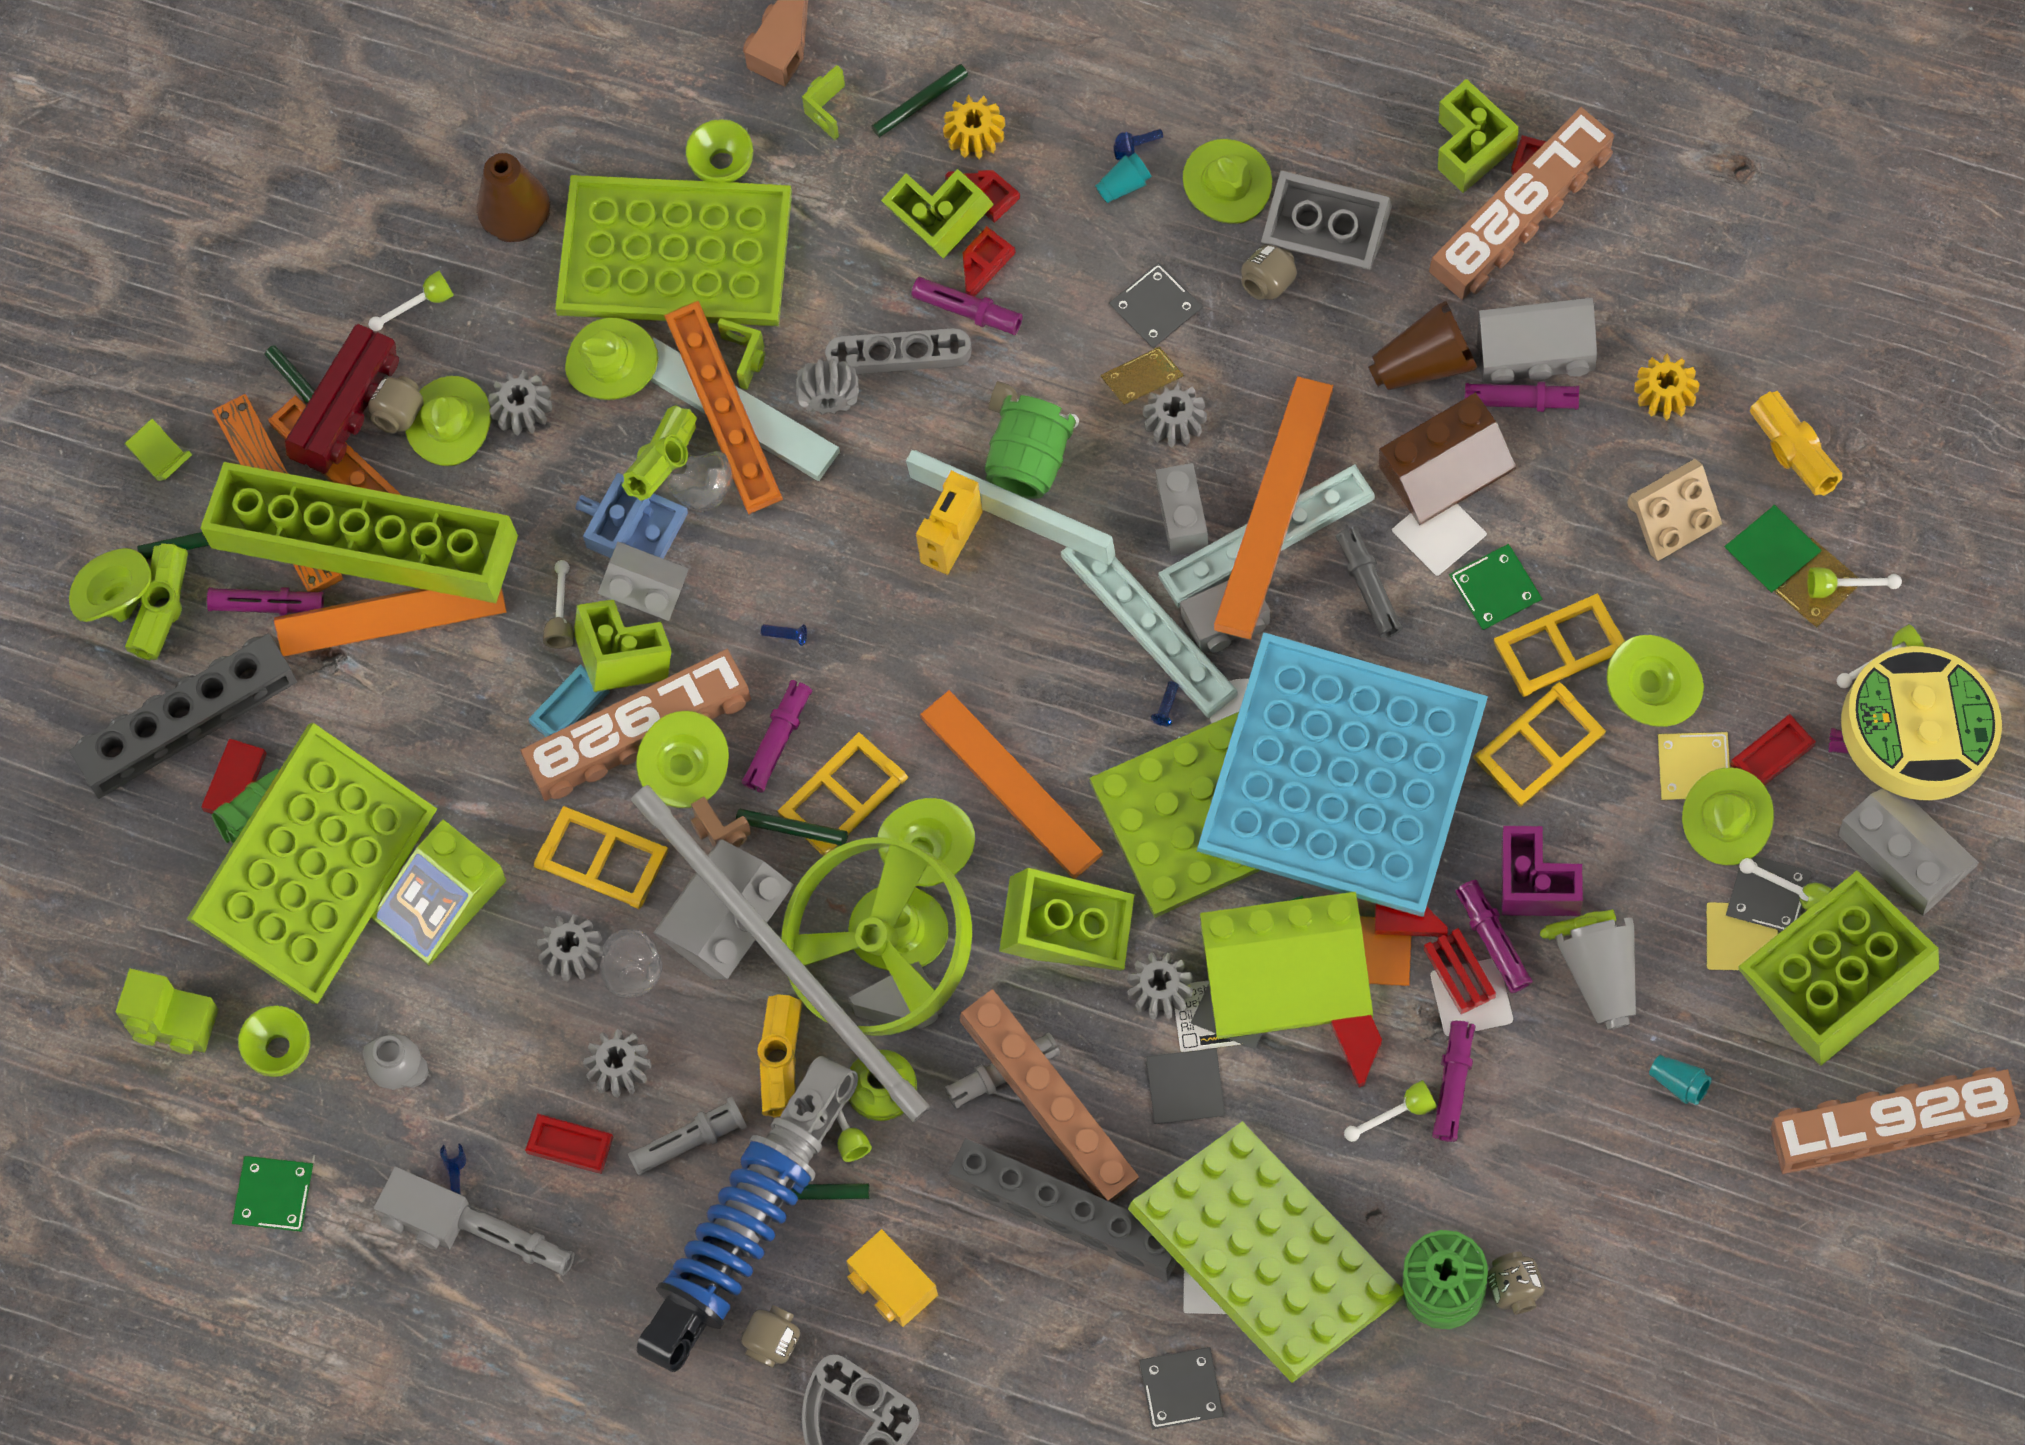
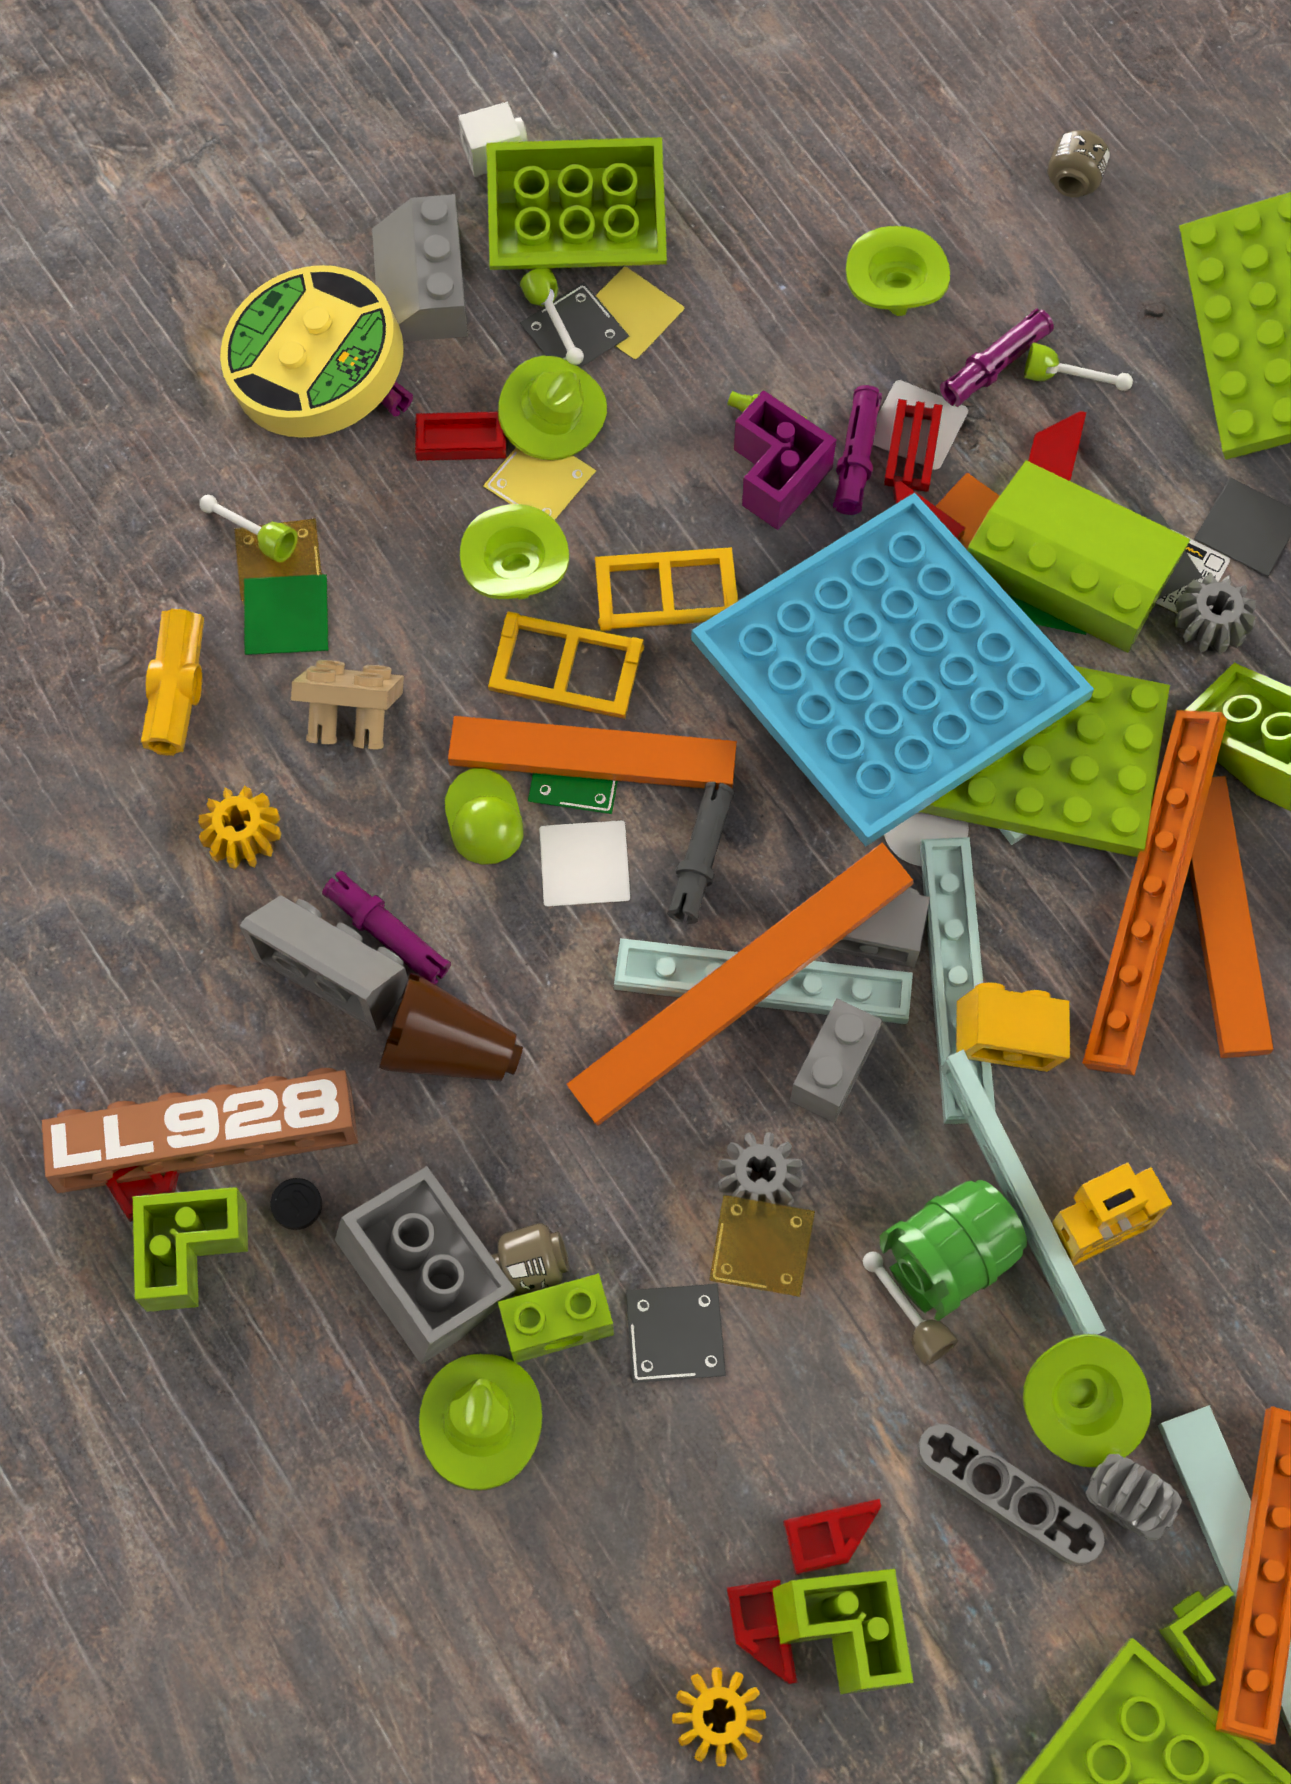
camera: 150 degrees left, 0 degrees up
(888, 421) = (1087, 1400): none -> lime hat
(981, 311) = (891, 1486): magenta pin -> none
(1065, 762) = (1155, 893): none -> orange tile
(1088, 601) = (1013, 1027): none -> yellow brick
(1123, 178) = (596, 1508): teal cone -> none
(1126, 141) = (561, 1553): clear blue hand -> none
(1162, 717) = (1002, 881): clear blue piece -> none
(1226, 249) = (556, 1318): none -> lime brick
(1434, 214) = (296, 1203): none -> black piece
(1446, 459) = (518, 920): slope -> none
(1450, 1301) = (1143, 195): bright green wheel -> none
(1491, 597) = (591, 752): none -> orange tile
(1526, 512) = (483, 816): none -> lime cap
(1574, 1088) = (897, 269): none -> lime hat
(1604, 969) = (782, 349): light grey cone -> none
(1682, 1079) = (791, 225): teal cone -> none
(1894, 1120) = (641, 78): nougat brick -> none
(1904, 637) = (254, 439): hinge -> none
(1955, 988) = (488, 126): none -> white brick

